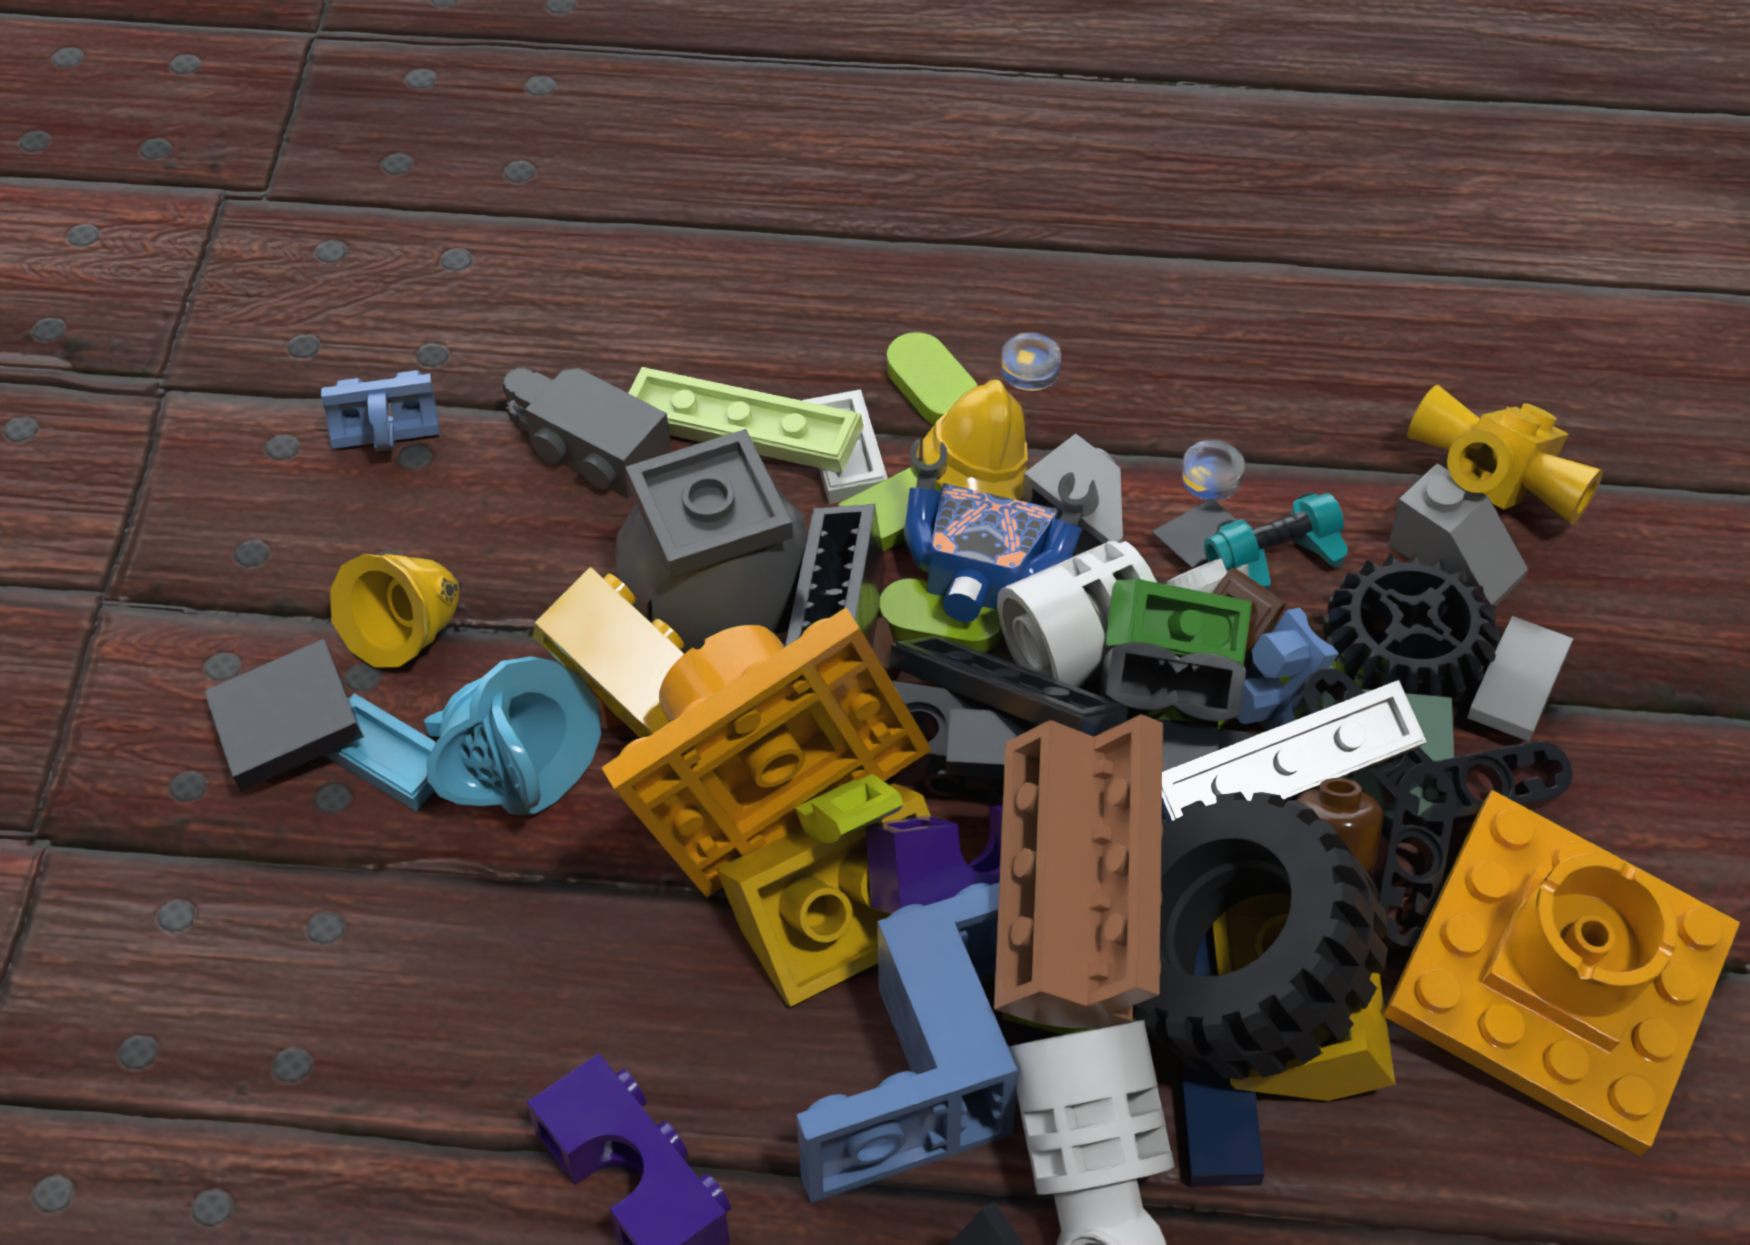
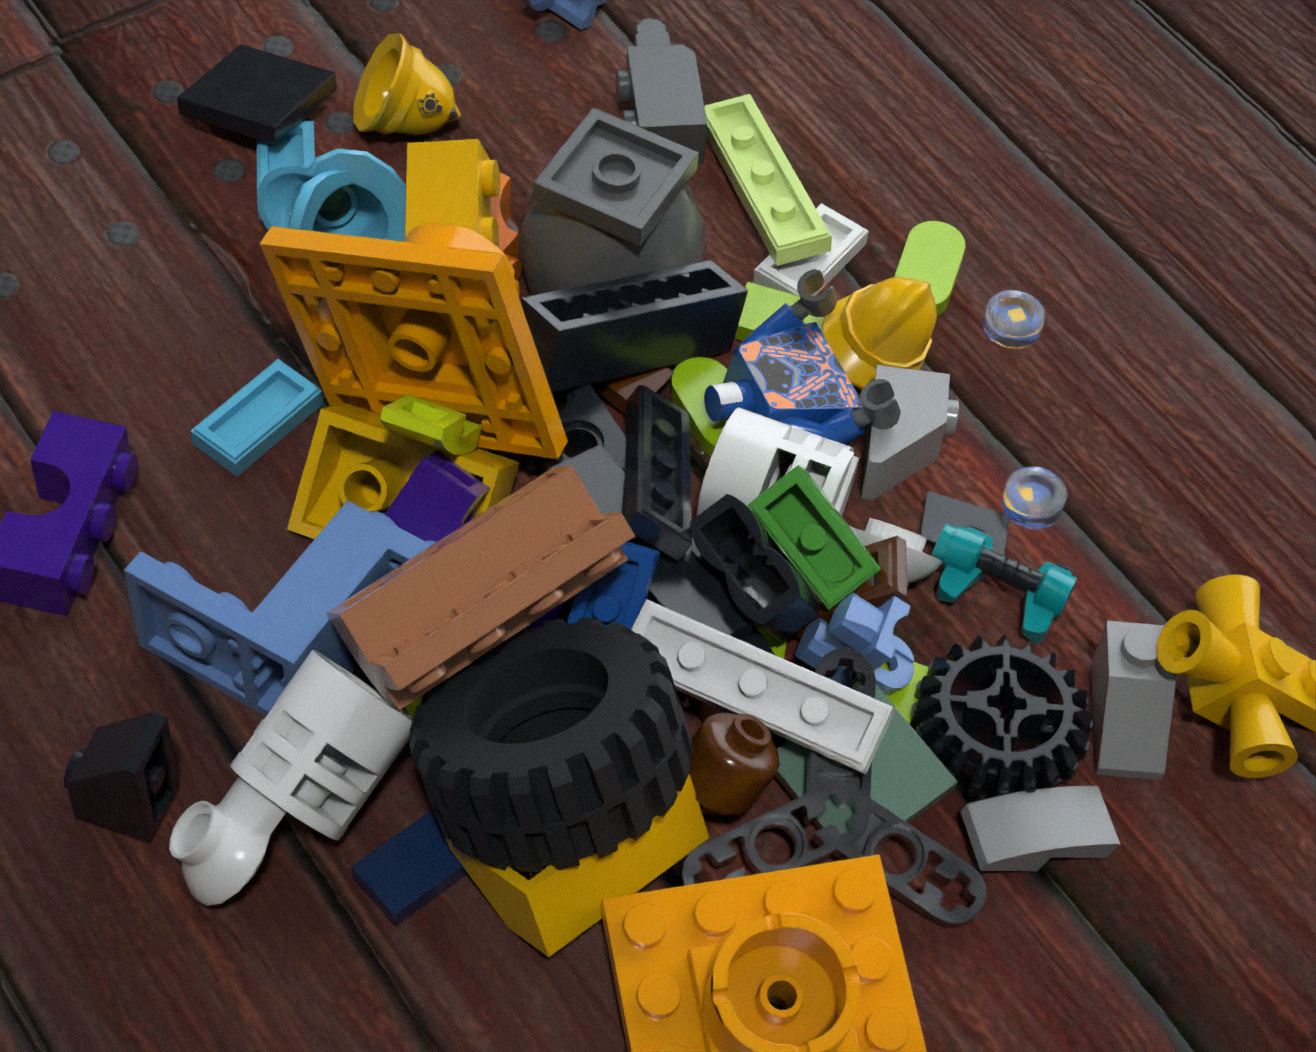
camera: 45 degrees right, 0 degrees up
(648, 952) = (257, 417): none -> medium azure tile

